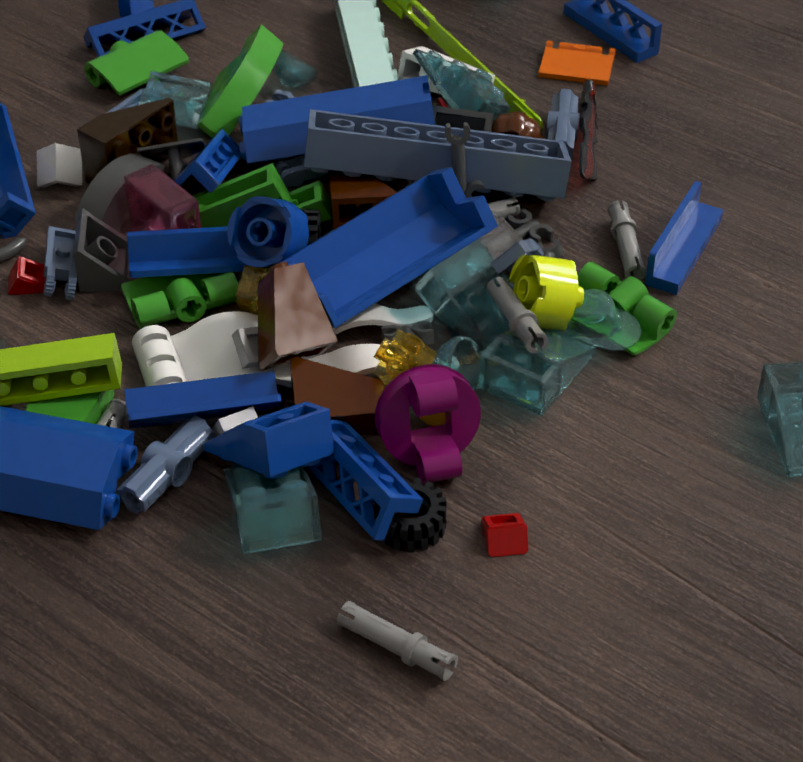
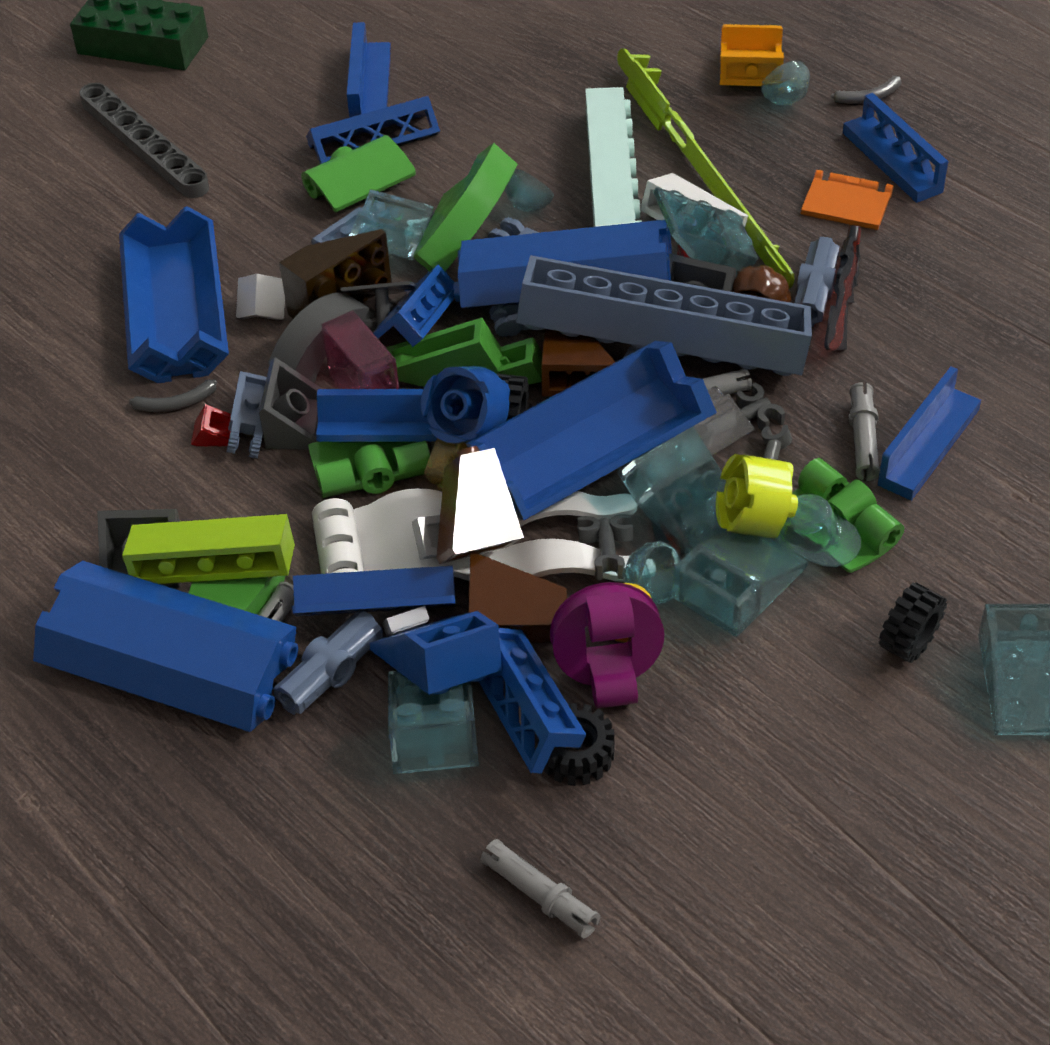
camera: 10 degrees right, 5 degrees up
(401, 354) = (587, 565): clear yellow brick -> none
(458, 159) = (685, 337): dark grey bar -> none
(505, 534) = (674, 775): red slope -> none
(508, 258) = (738, 444): sand blue hinge -> none
(521, 321) = (724, 532): light grey pin -> none
(700, 387) = (912, 622): none -> black tyre

